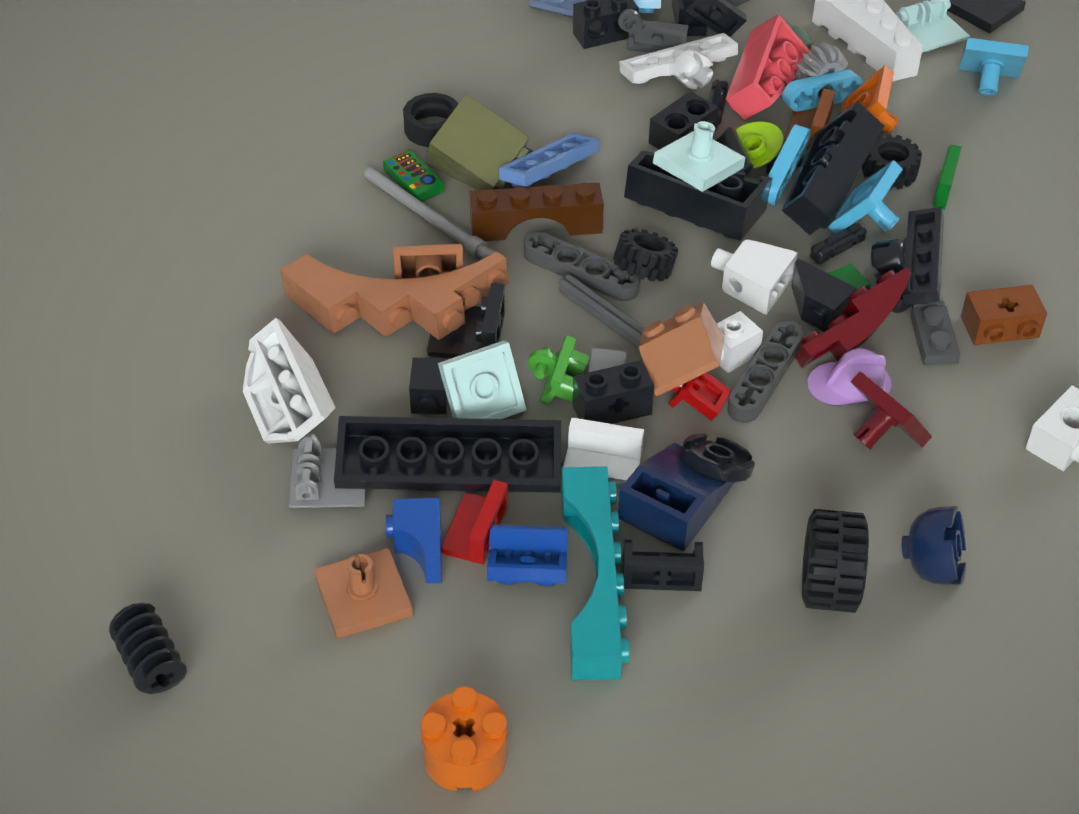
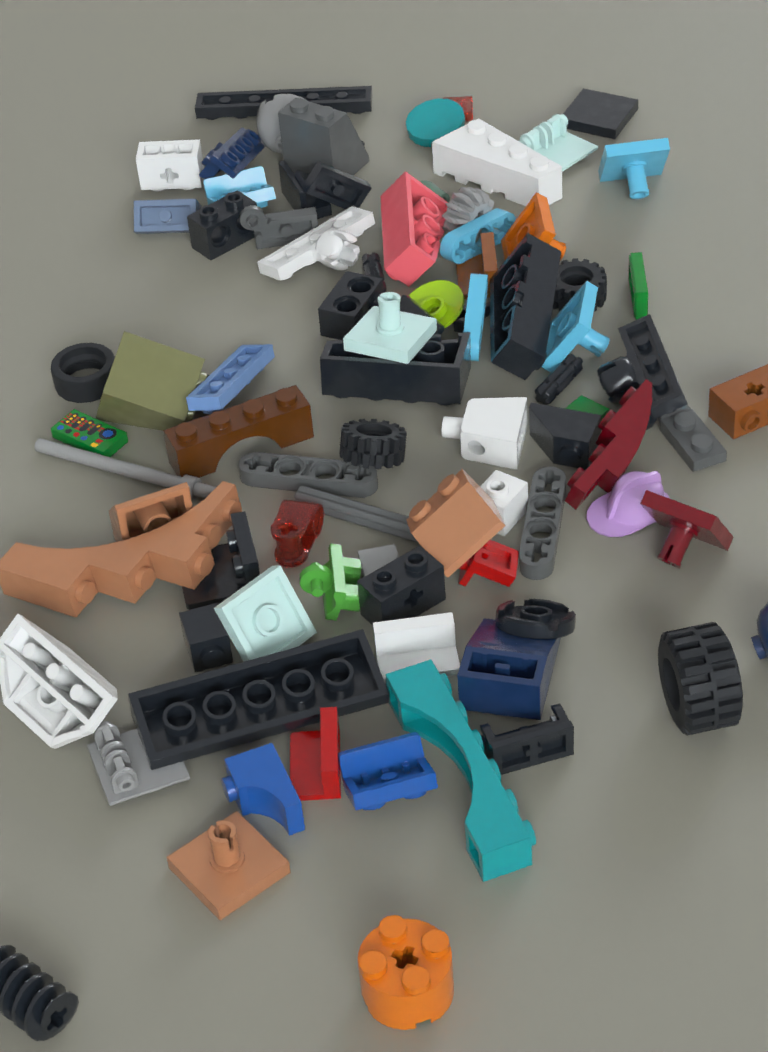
camera: 15 degrees left, 5 degrees down
(547, 313) = (296, 531): none -> clear red piece

